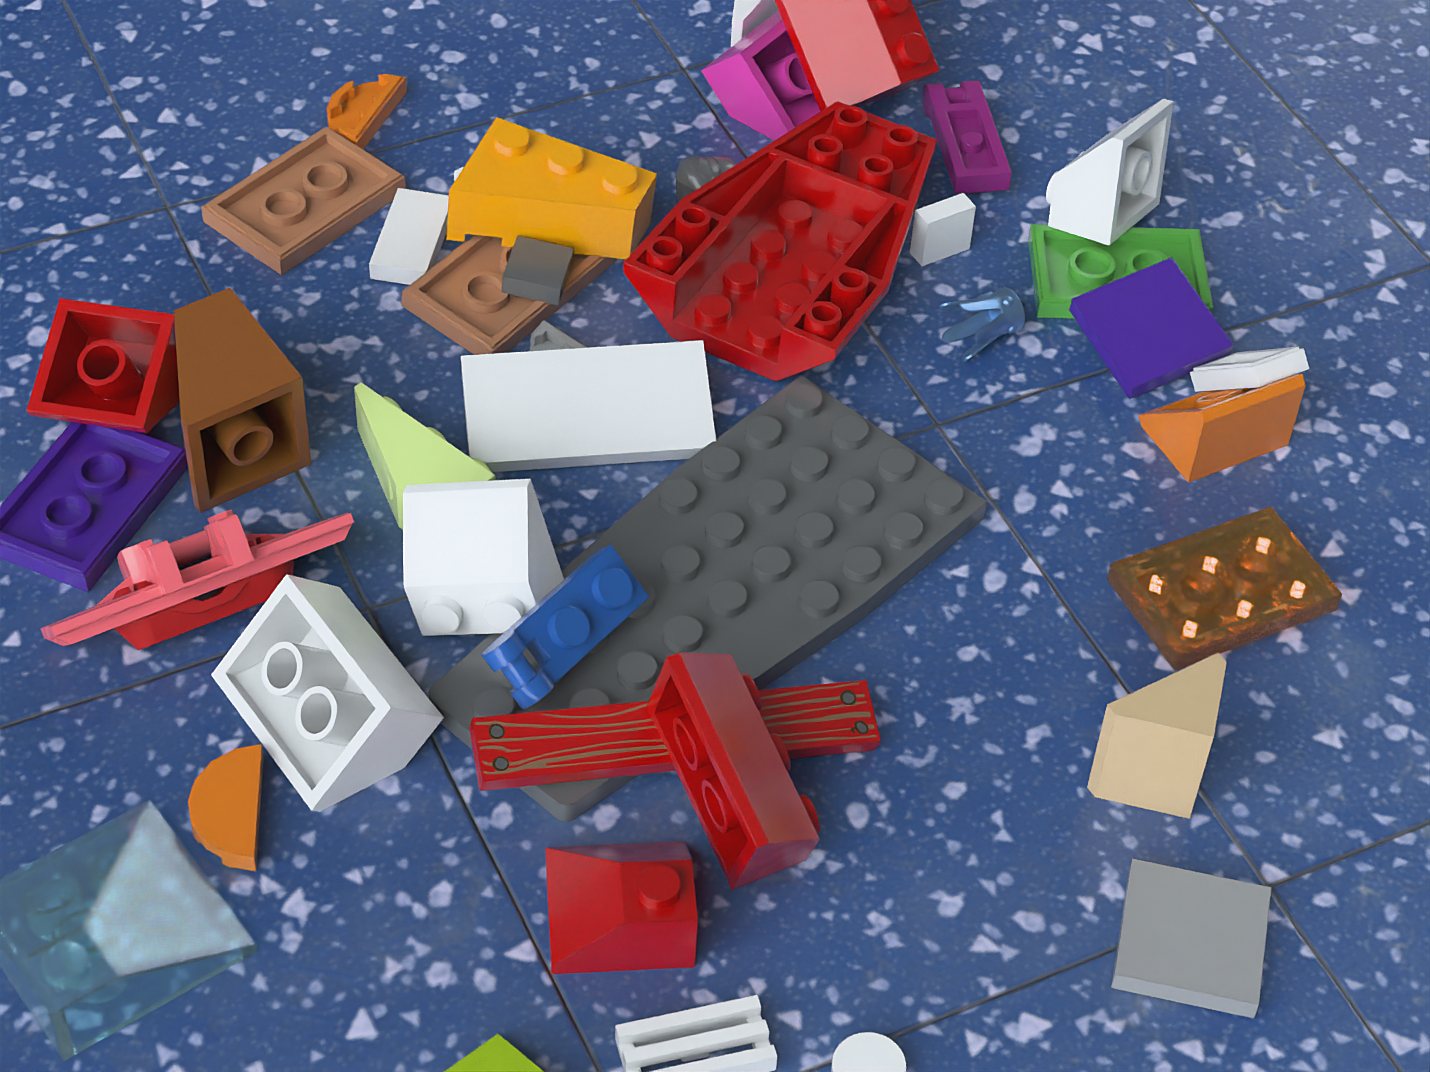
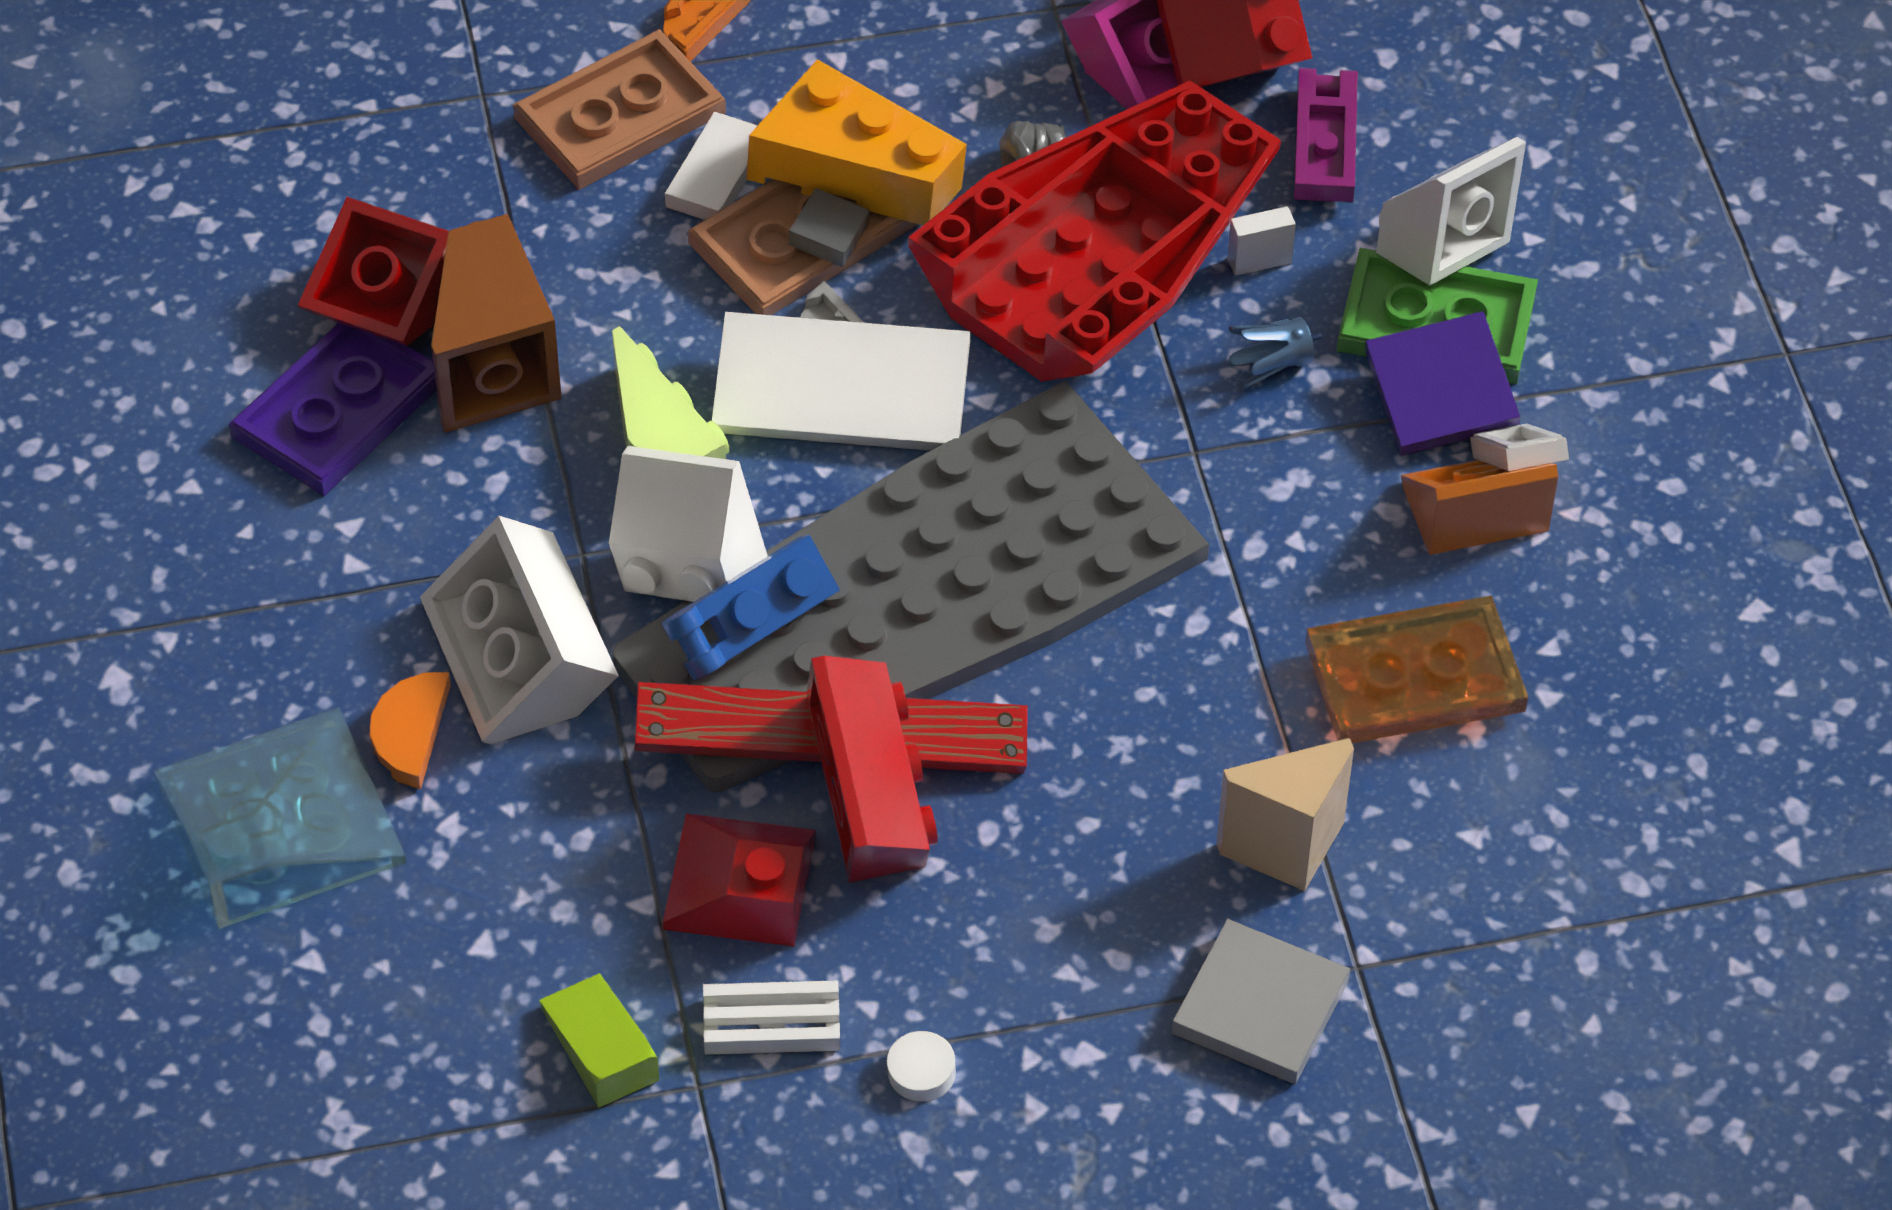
camera: 15 degrees right, 5 degrees up
(157, 597) = (382, 518): coral piece -> none

